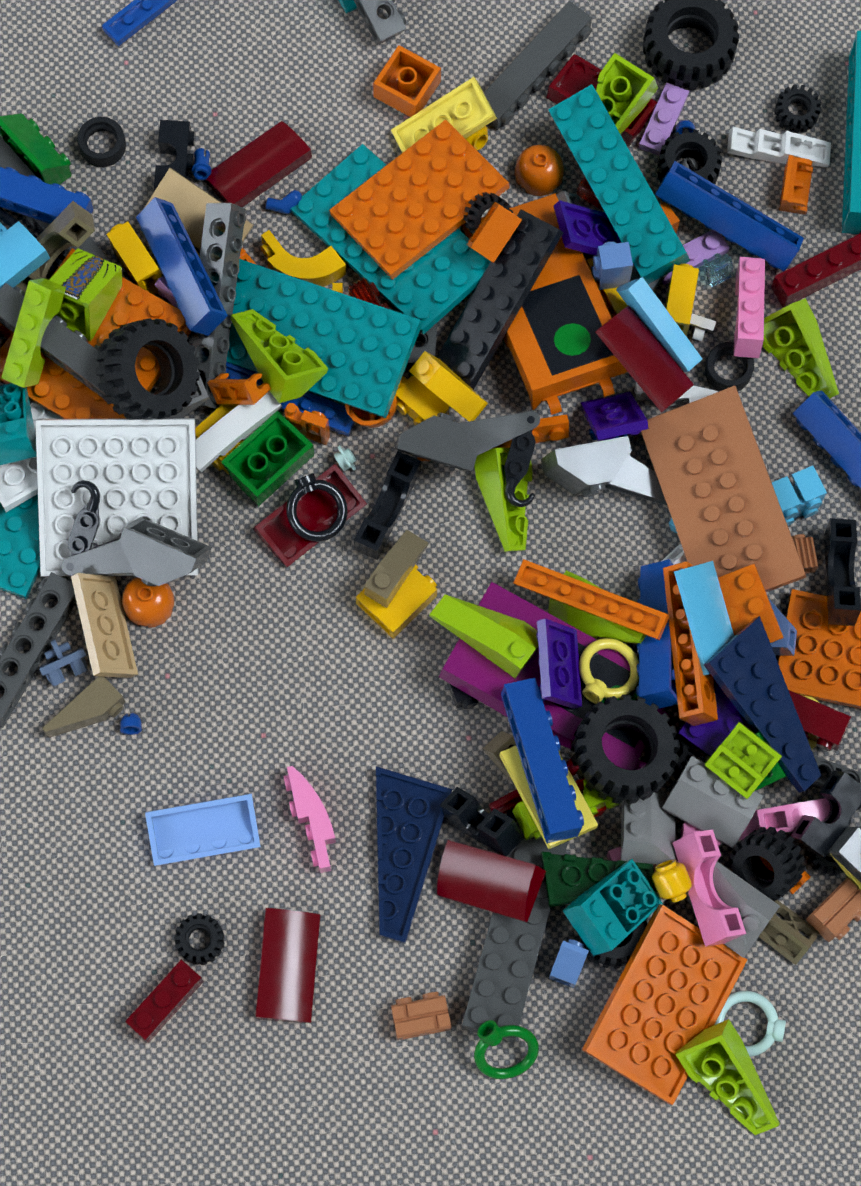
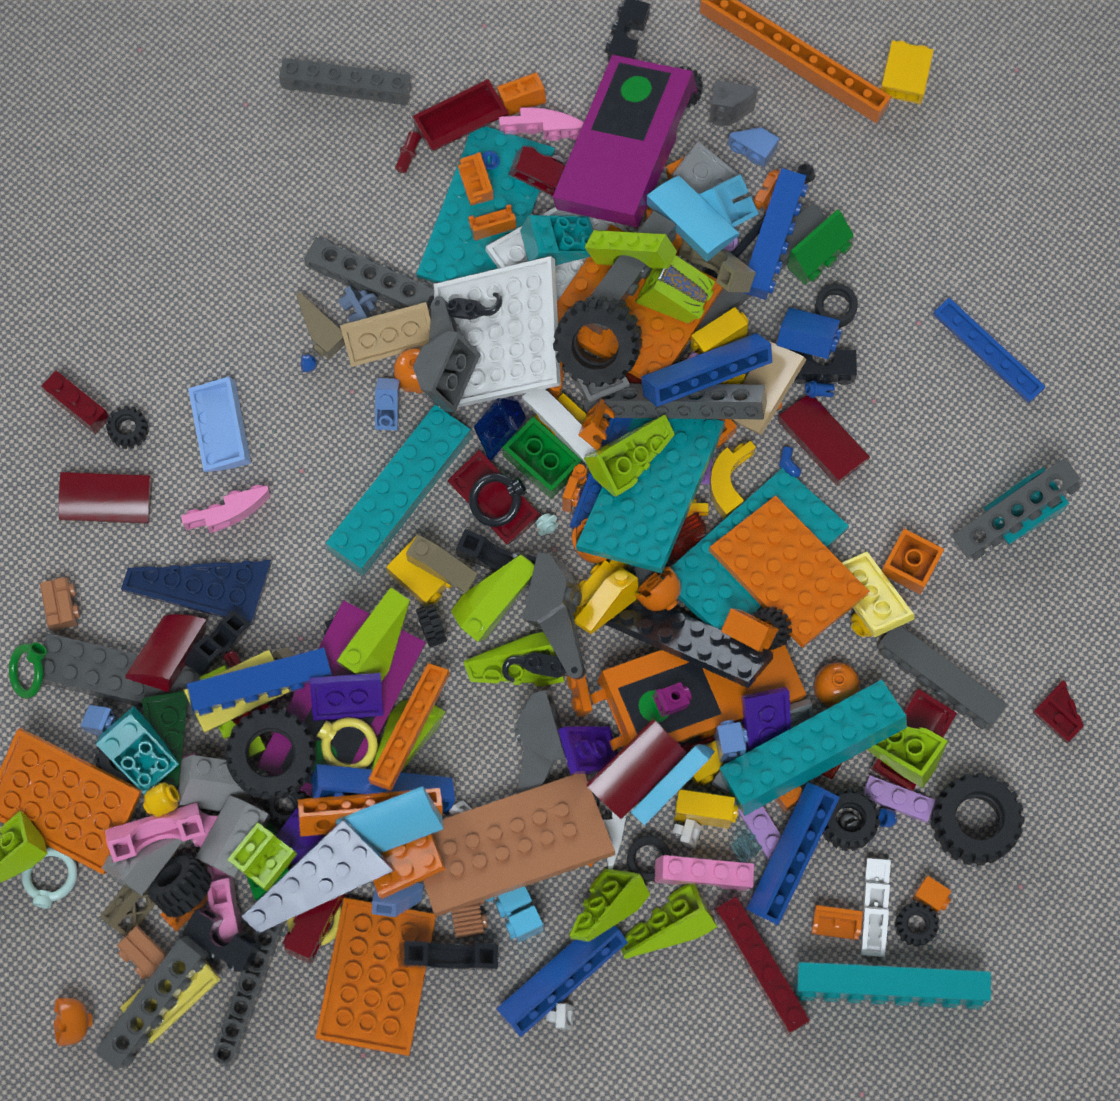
camera: 90 degrees right, 0 degrees up
(137, 166) = (809, 333): none -> blue brick
(188, 631) = (387, 403): none -> medium blue slope
(228, 503) = (499, 425): none -> clear blue slope
(297, 619) = (398, 490): none -> teal brick
(435, 515) = (490, 599): none -> lime wedge
(442, 332) = (660, 593): none -> orange cylinder
(465, 583) = (431, 625): none -> black tyre
(567, 318) = (666, 704): none -> magenta brick
(767, 91) = (933, 894): none -> orange brick
(784, 404) = (611, 900): none -> lime wedge

